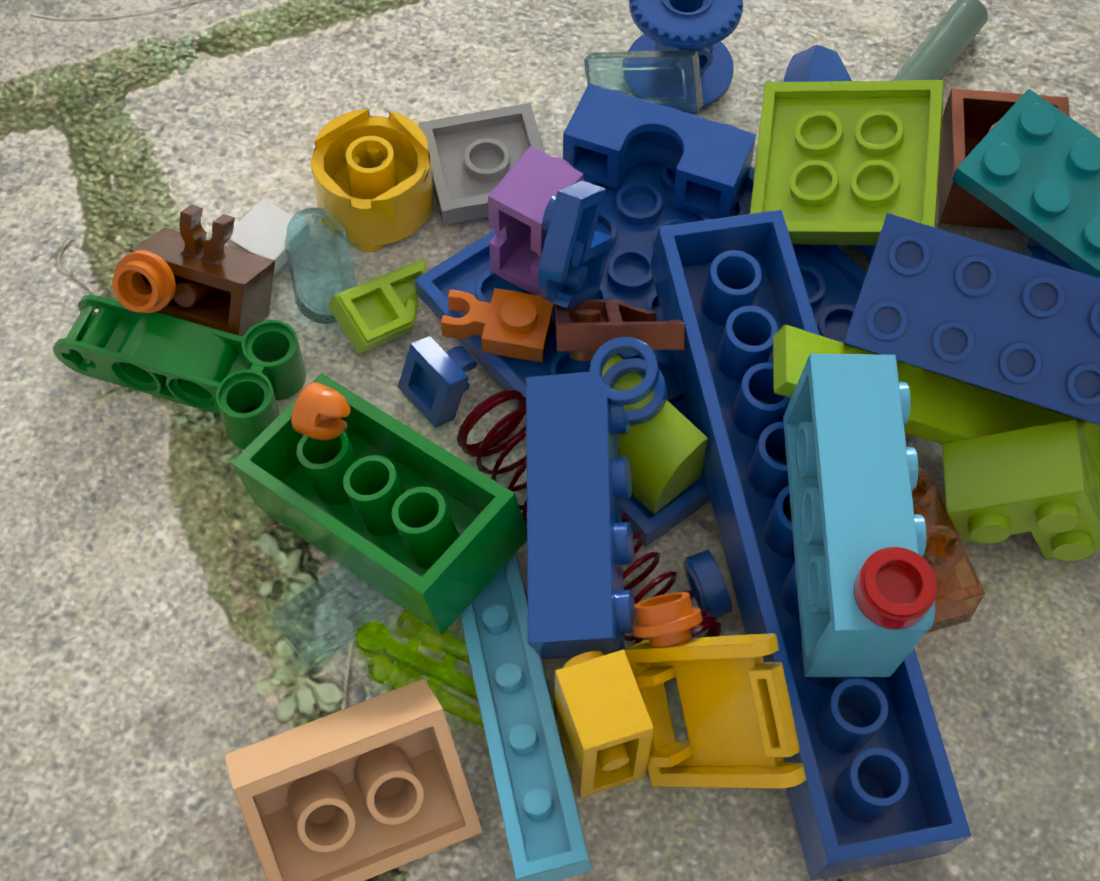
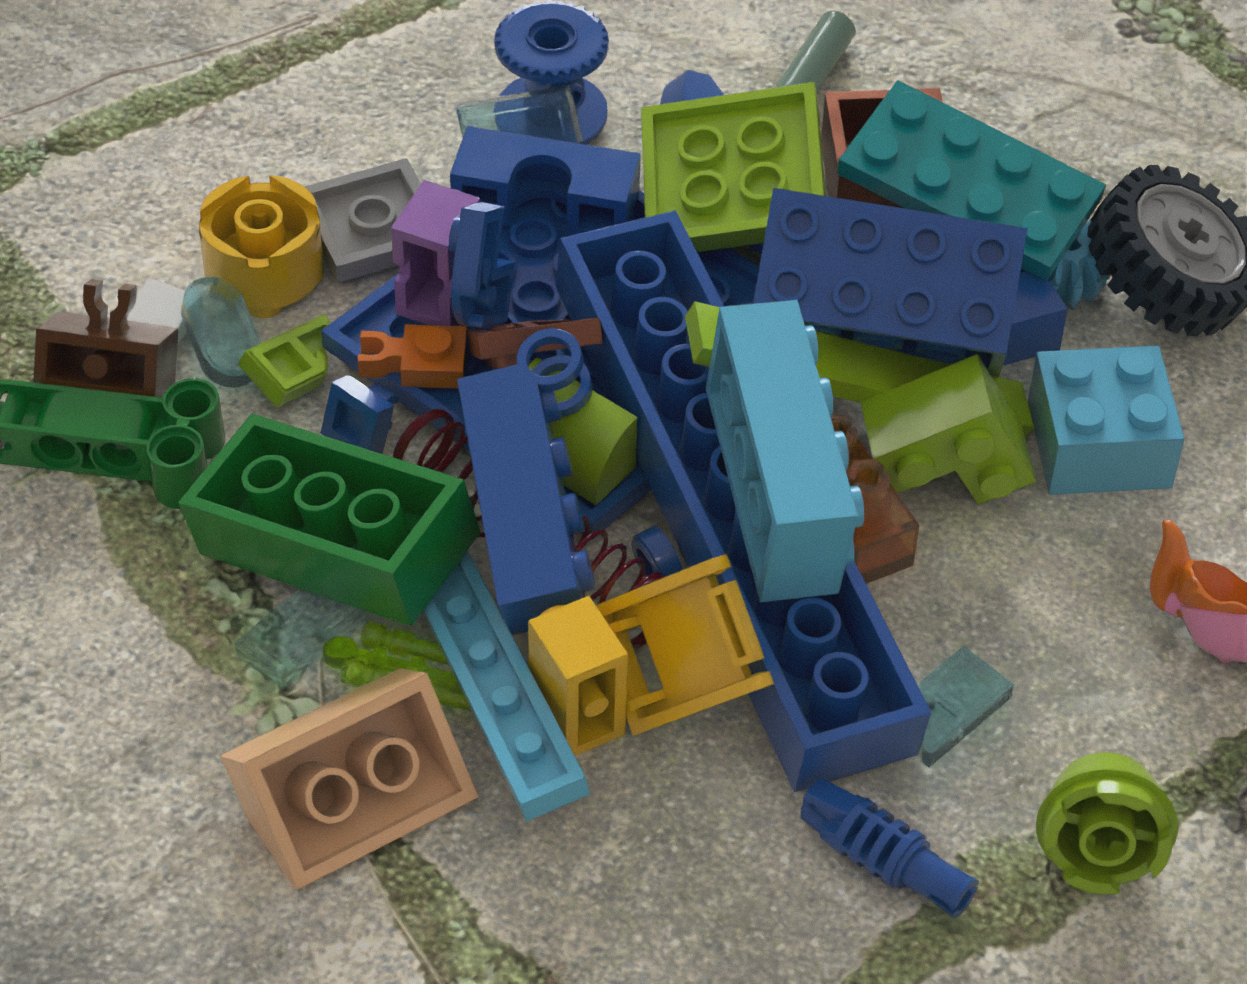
camera: 10 degrees left, 10 degrees down
(131, 288) = (42, 365): orange plate -> none
(320, 412) = (261, 439): orange hinge -> none
(666, 619) = (623, 570): orange plate -> none
(895, 588) = (824, 482): red tile -> none
(998, 793) = (960, 698): none -> clear light blue tile

